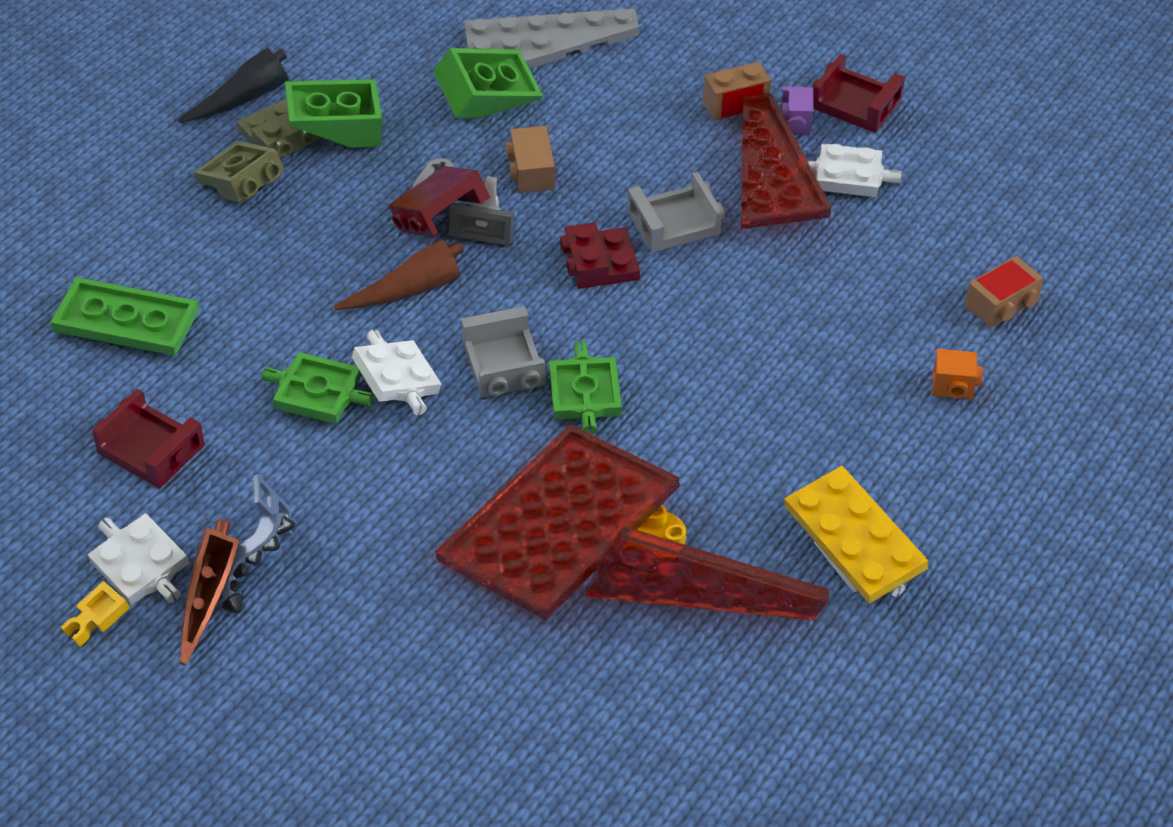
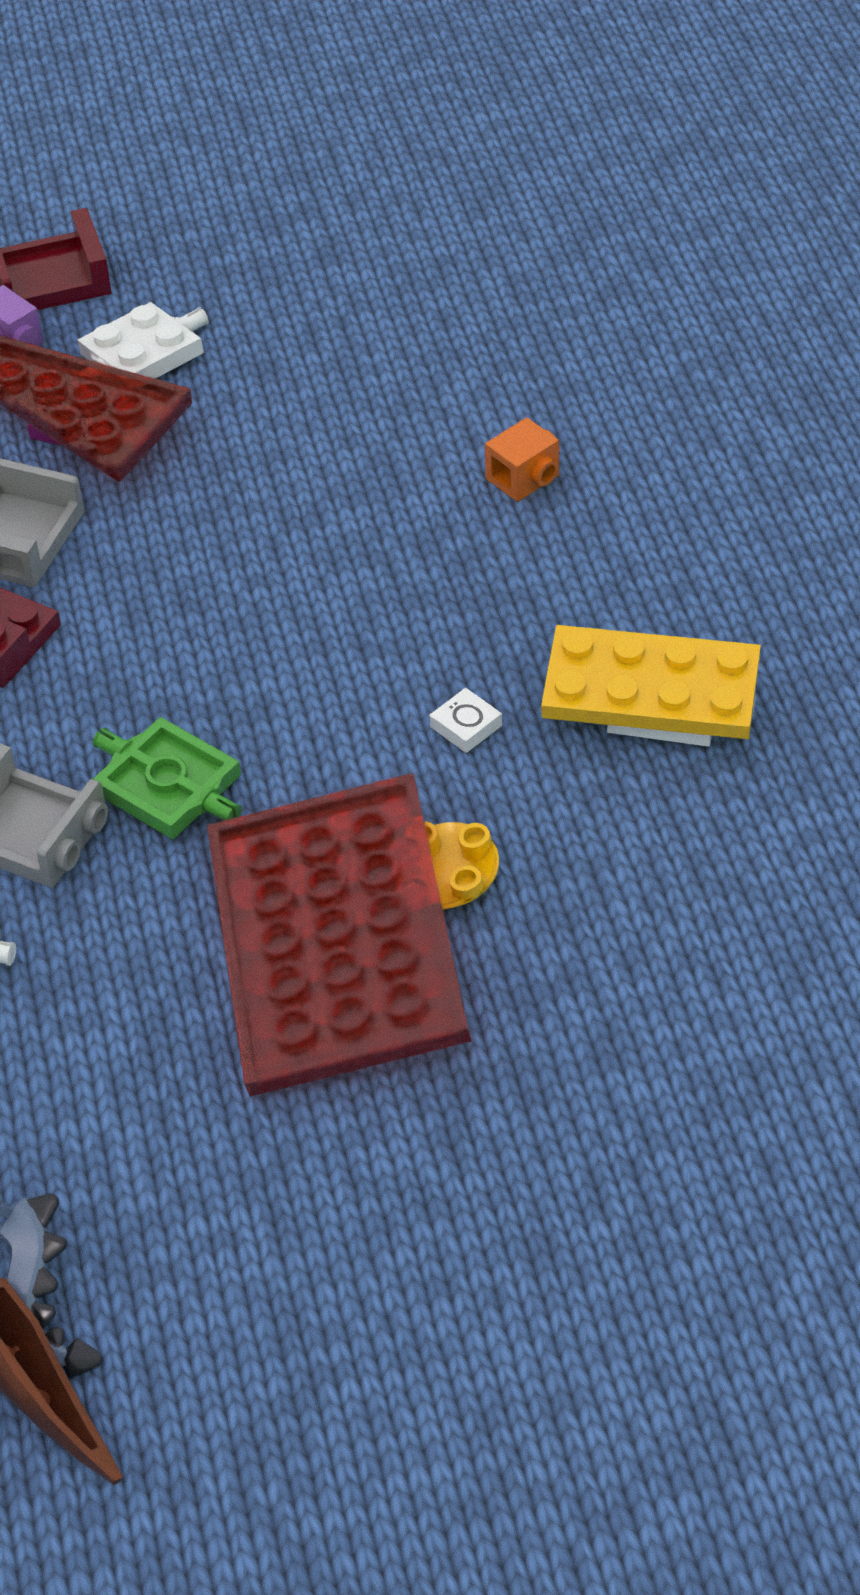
camera: 45 degrees left, 0 degrees up
(674, 574) = (553, 864): clear red wing -> none
(755, 478) = (465, 720): none -> white tile
(1004, 291) = (461, 347): medium nougat brick -> none

